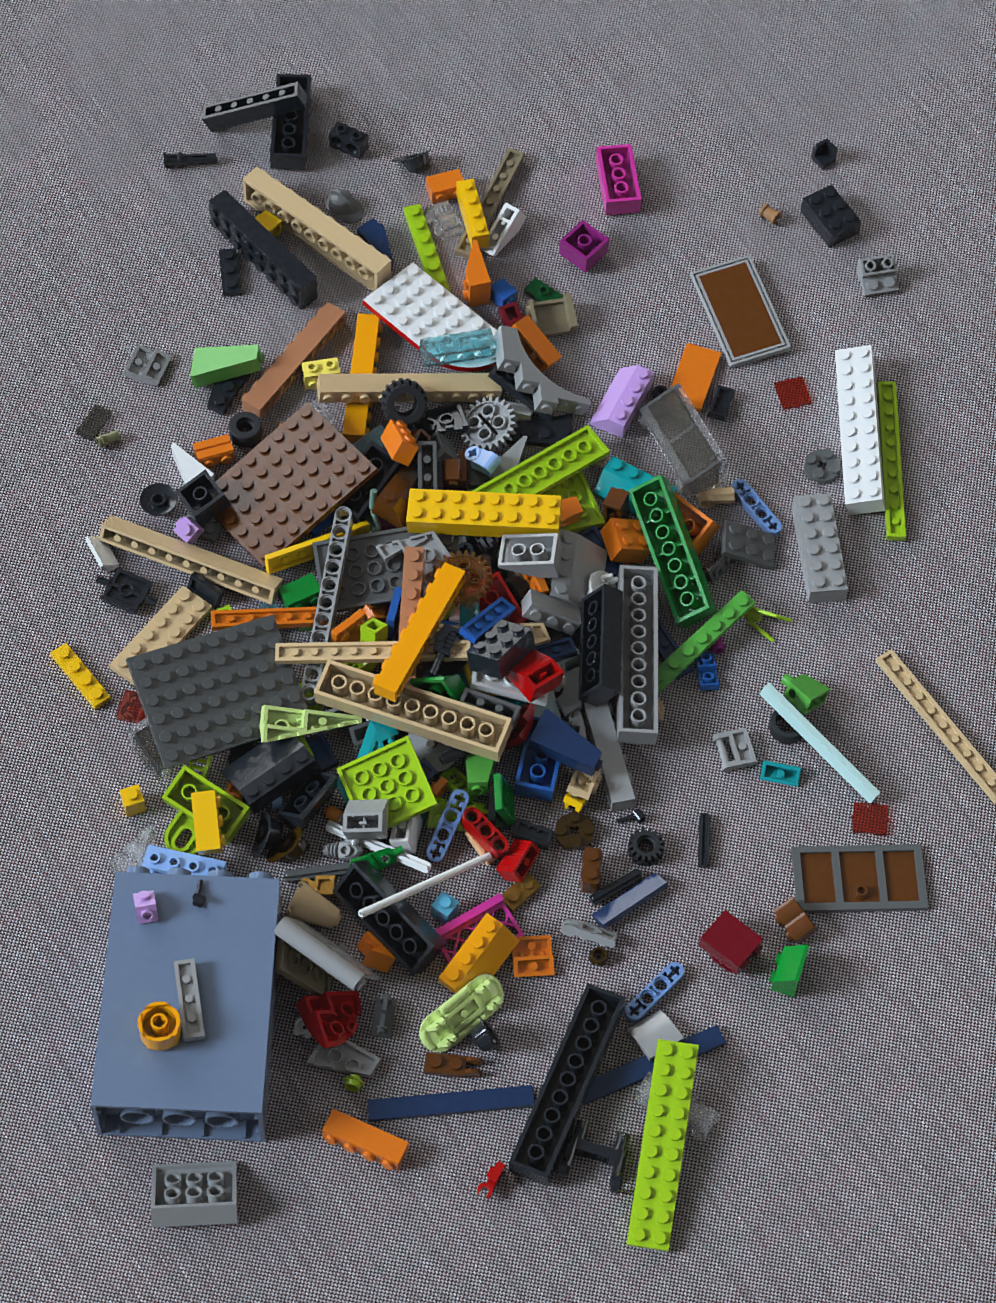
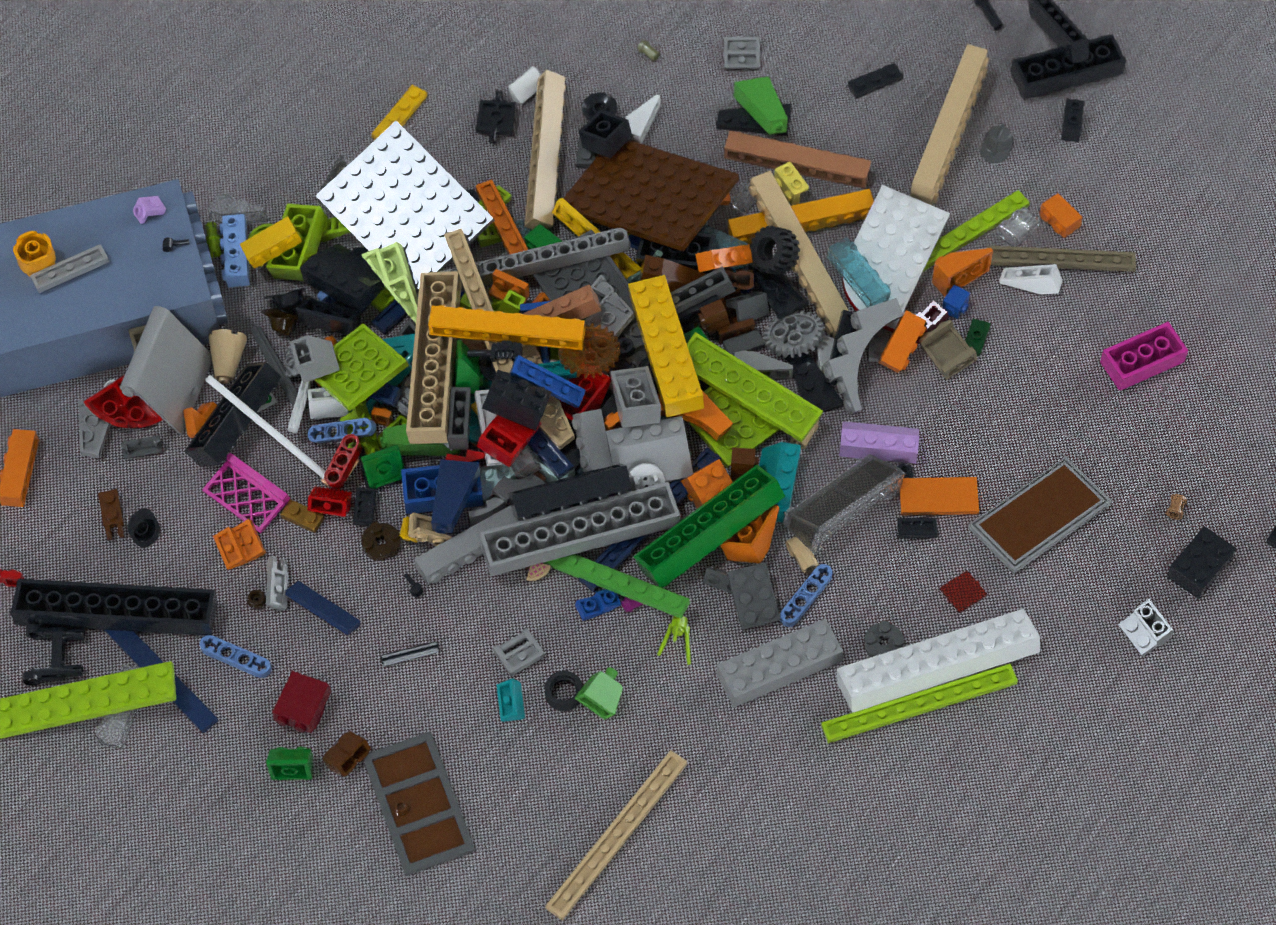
camera: 75 degrees right, 0 degrees up
(93, 422) = (663, 36): clear smoke tile -> none
(132, 800) = (287, 190): yellow brick -> none
(167, 627) = (469, 159): tan plate -> none
(188, 529) = (570, 137): lavender brick -> none
(205, 589) = (520, 173): black tile -> none
(214, 451) = (668, 131): orange brick -> none
(245, 439) = (705, 138): black tyre -> none
(263, 250) = (904, 92): black brick -> none
(270, 222) = (939, 89): yellow brick -> none
(323, 884) = (253, 354): pearl gold plate -> none
(353, 1083) = (71, 442): lime plate -> none
(374, 234) = (965, 181): dark blue slope -> none
(376, 860) = (287, 388): green piece -> none
(415, 162) = (1076, 180): black piece -> none
(444, 908) = (261, 458): medium azure brick -> none
(450, 1103) = (74, 522): dark blue tile -> none
(461, 1013) = (168, 505): yellowish green piece -> none
(472, 212) = (1030, 243): yellow brick -> none
(480, 954) = (215, 497): light orange slope -> none
(482, 460) = (745, 338): light blue piece -> none
(584, 246) = (1045, 350): magenta brick -> none
(590, 870) = (341, 564): reddish brown brick -> none
(615, 887) = (334, 592): black axle -> none
(645, 836) = (383, 615): black tyre -> none
(649, 1030) = (192, 668): light grey slope -> none
(820, 743) = (545, 720): light aqua tile -> none
(870, 818) = (488, 796): clear red piece -> none

